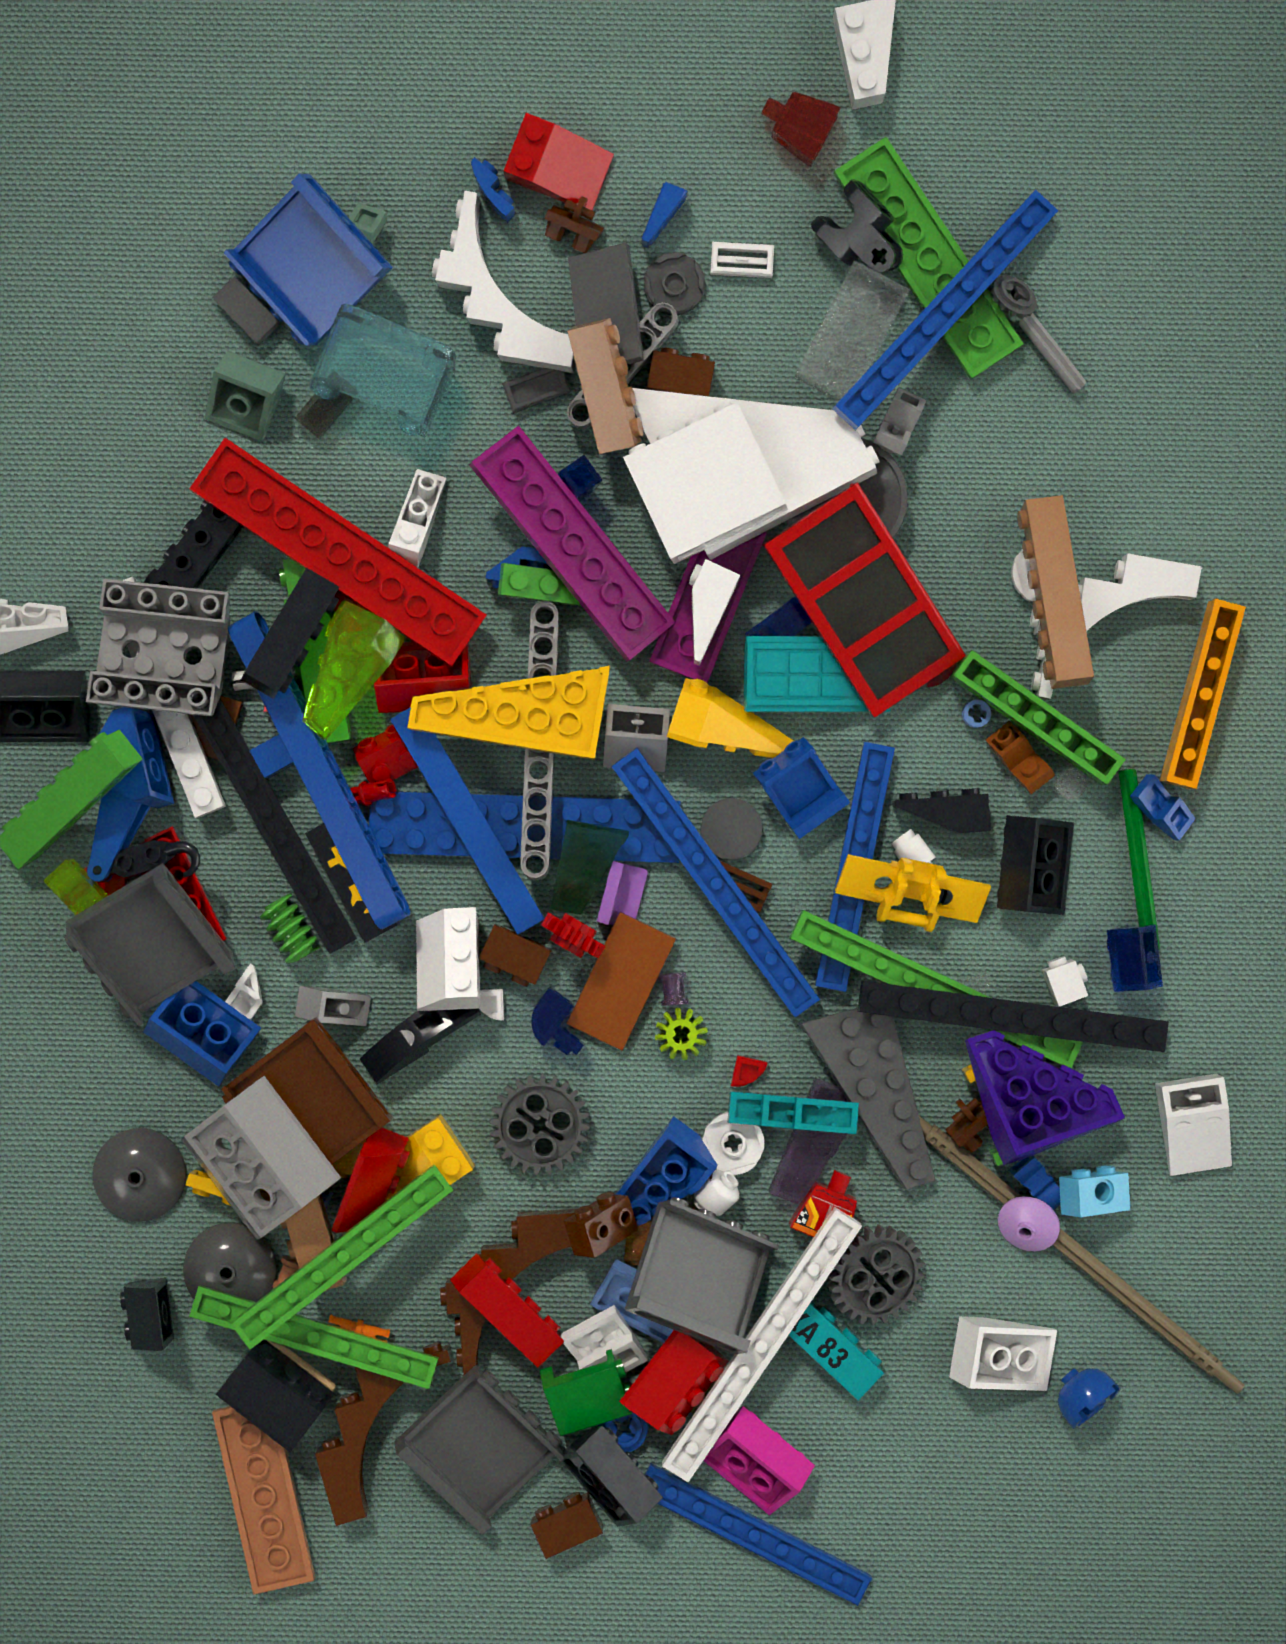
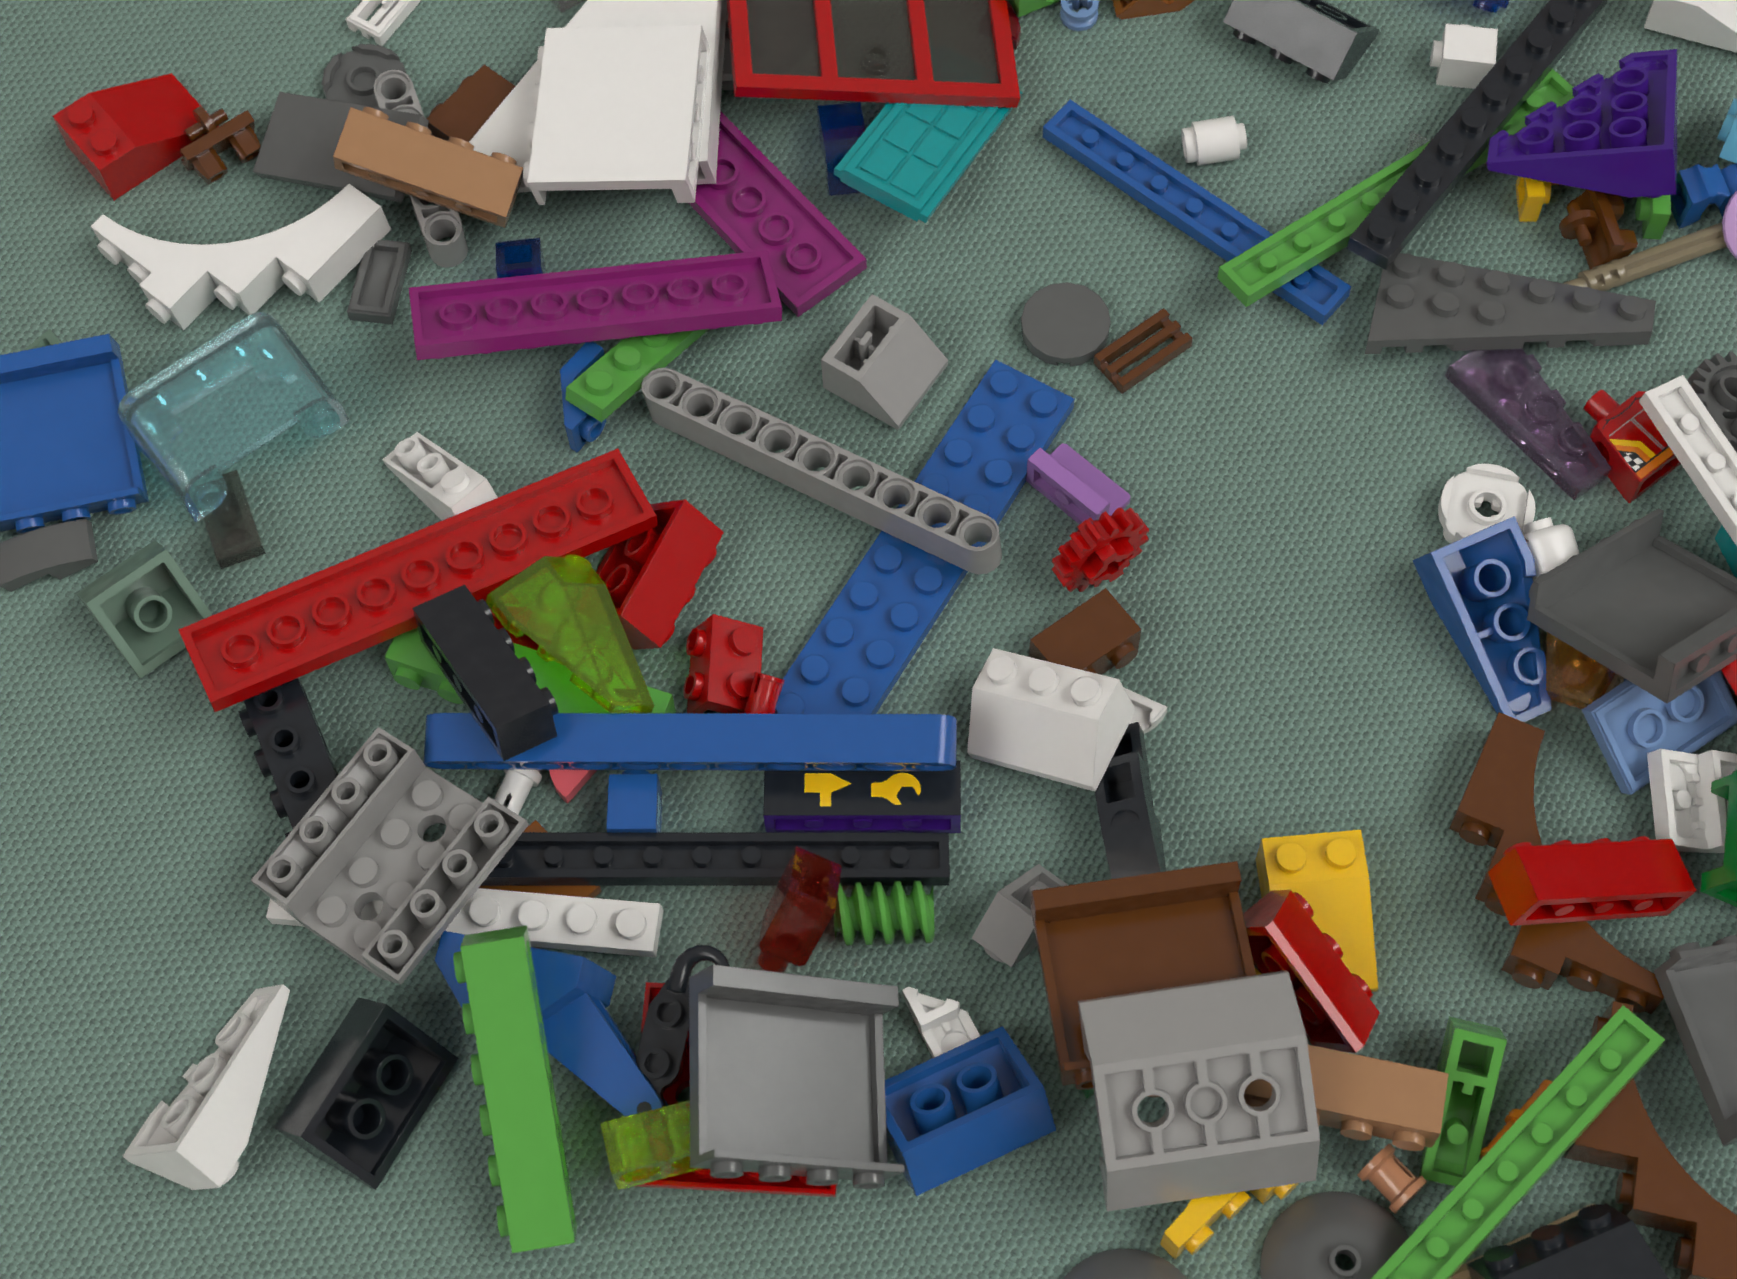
camera: 55 degrees left, 25 degrees down
(250, 888) = (798, 911): none -> clear red torso
(341, 1257) = (1407, 1055): bright green plate -> none
(361, 1291) = (1473, 1060): none -> bright green slope
(470, 824) = (867, 603): blue tile -> none
(488, 182) = (131, 209): blue slope -> none
(523, 1147) = (1362, 763): dark grey gear -> none
(534, 713) = (775, 446): yellow wing -> none
(546, 1022) = (1198, 648): clear blue brick -> none
(583, 862) = (1000, 483): clear green wing -> none
(600, 1225) = (1525, 698): reddish brown brick -> none
(621, 981) = (1196, 540): dark orange tile -> none
(666, 206) = (271, 46): blue slope -> none
(673, 989) = (1238, 480): clear purple bush -> none
(691, 1034) = (1304, 498): lime gear -> none
(710, 596) = (772, 190): white slope -> none
(713, 717) = (914, 263): yellow wedge -> none
(715, 882) = (1124, 359): blue plate -> none
(747, 1070) = (1394, 453): red tile -> none
(793, 1112) = (1481, 407): teal slope -> none
(800, 787) = (1060, 213): blue panel -> none
(915, 880) = (1249, 140): yellow piece -> none
(955, 813) = (1187, 80): black slope -> none

